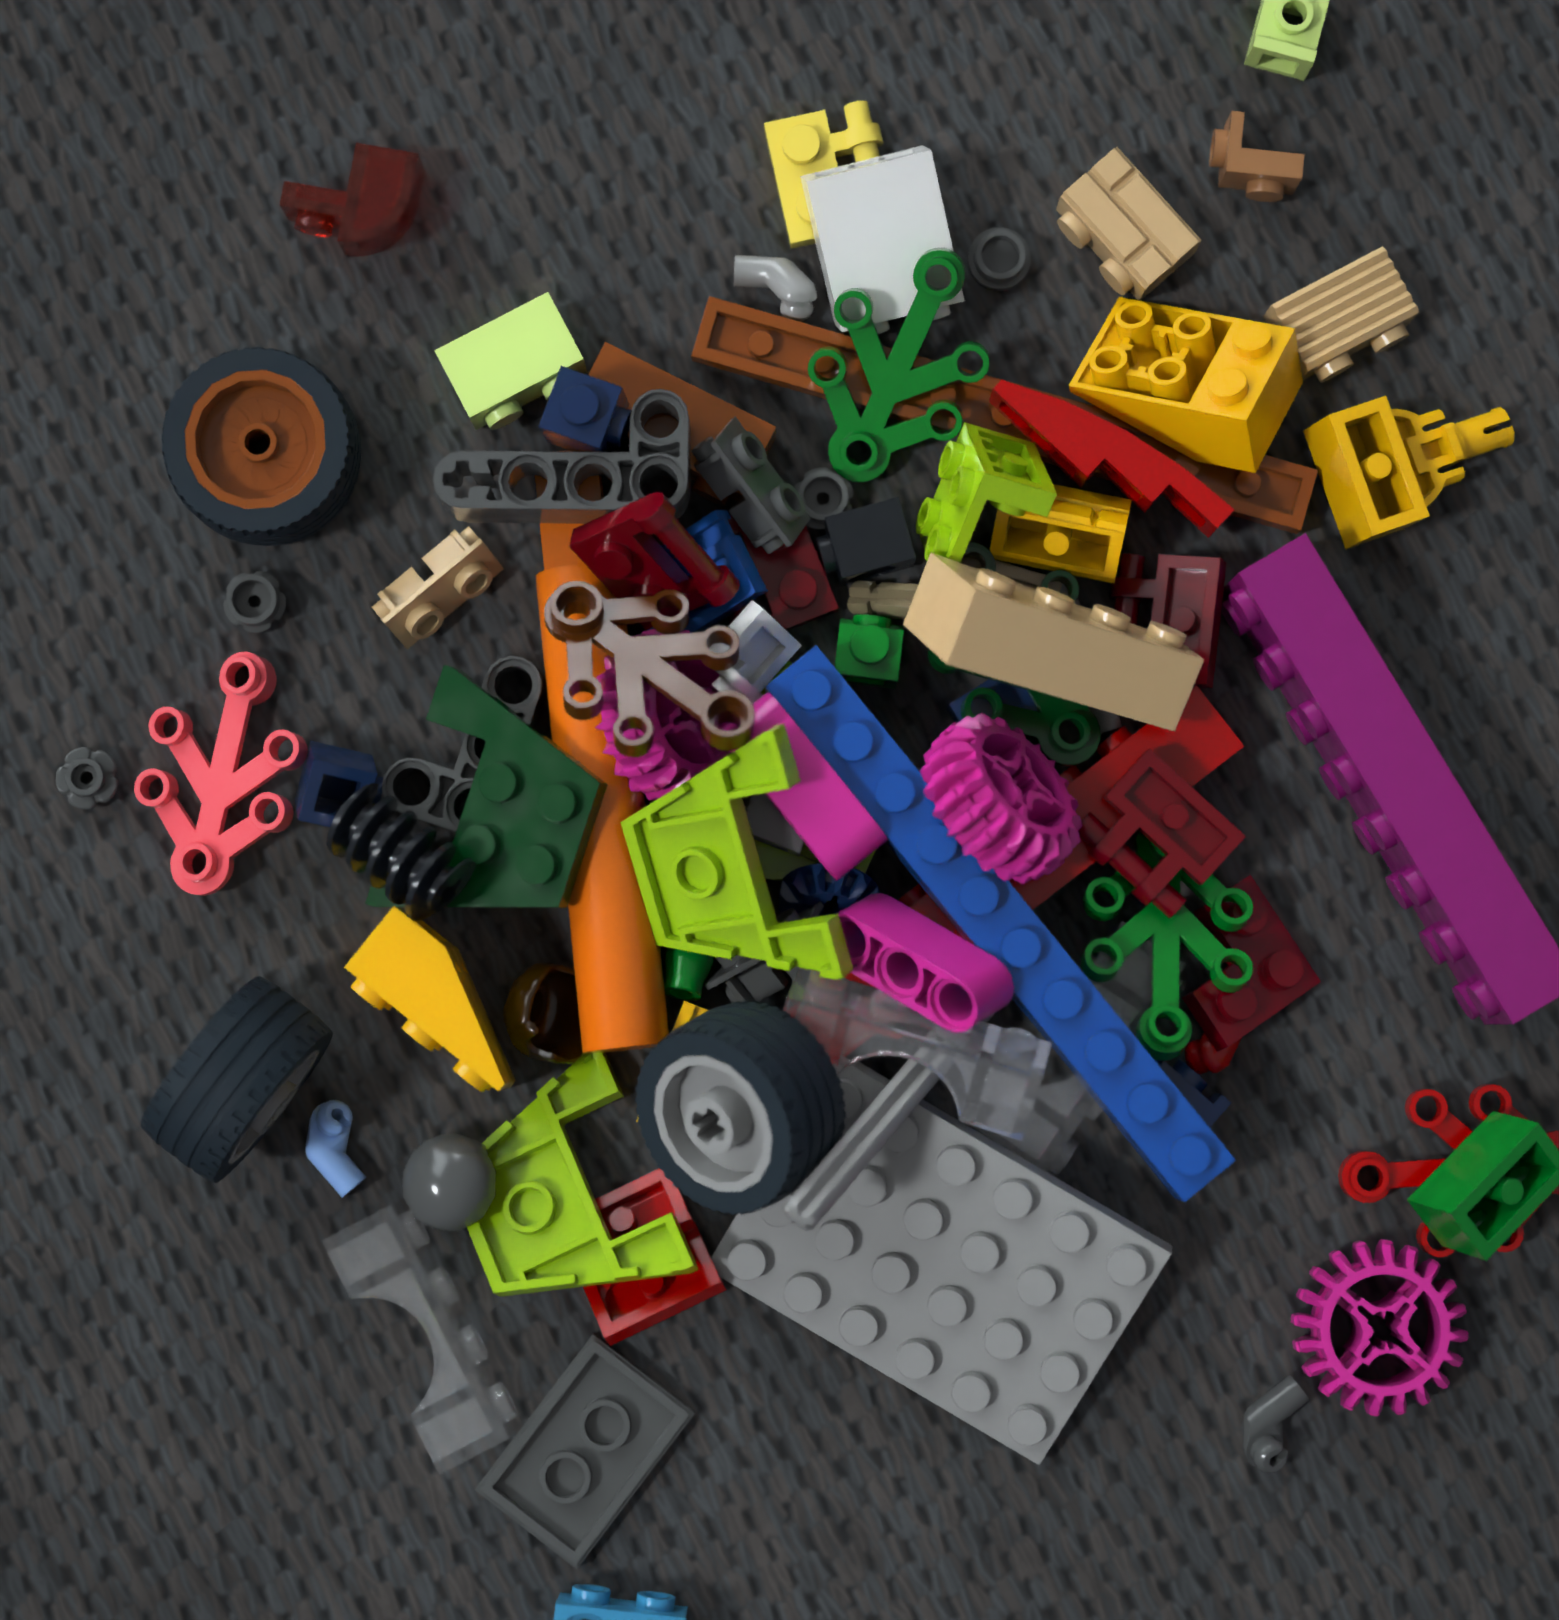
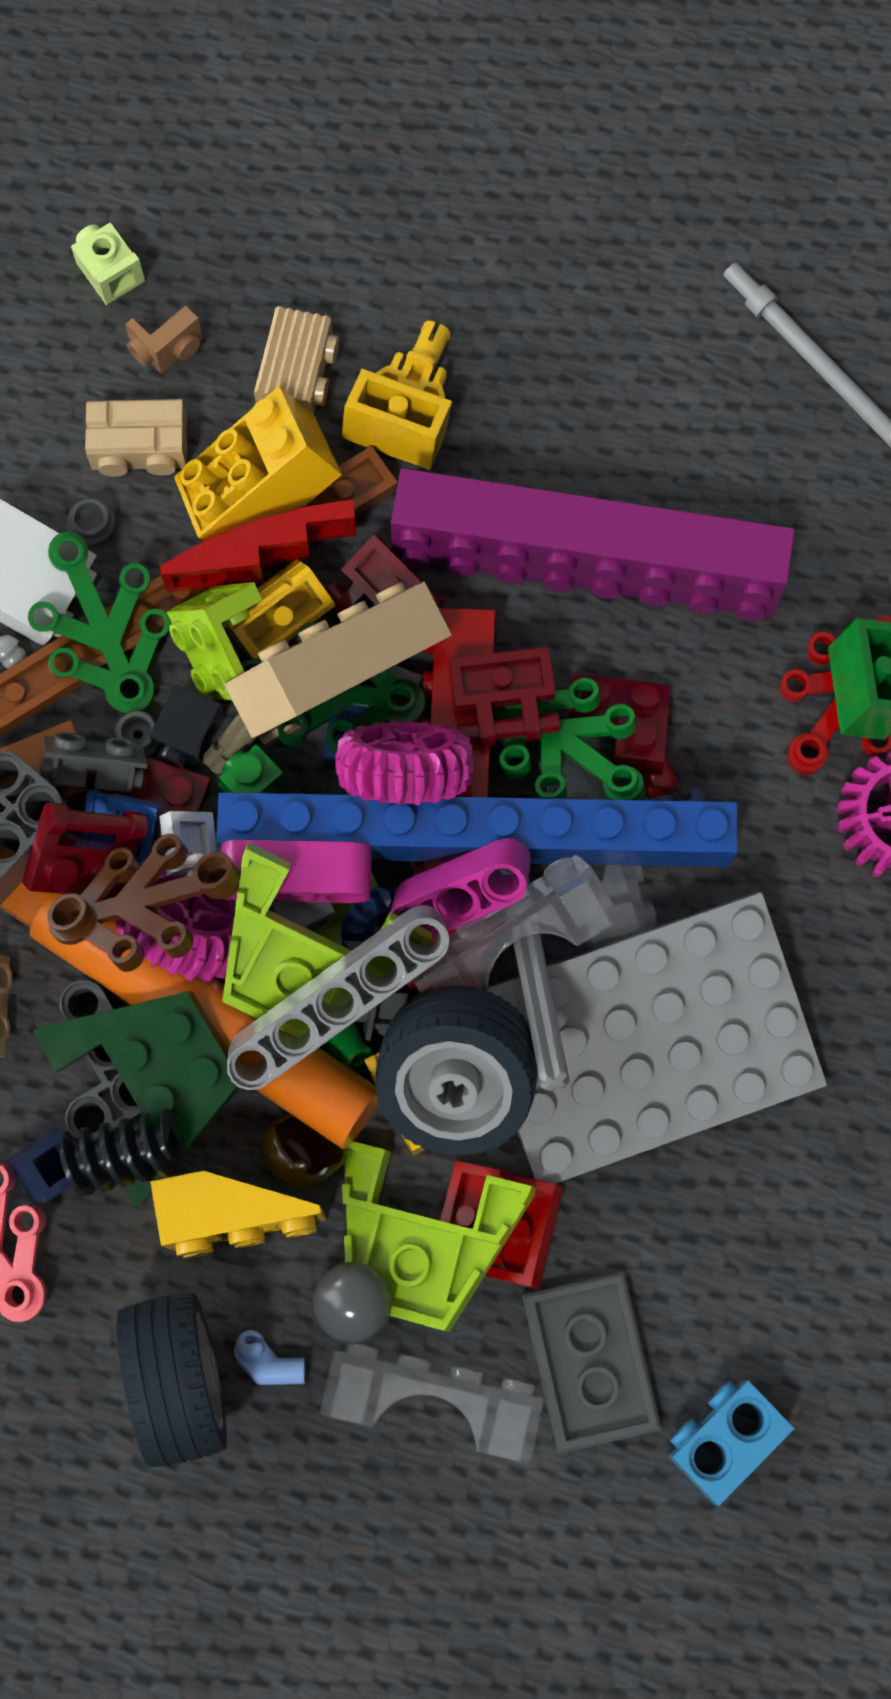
camera: 50 degrees left, 10 degrees down
(738, 925) = (326, 1020): none -> light grey beam

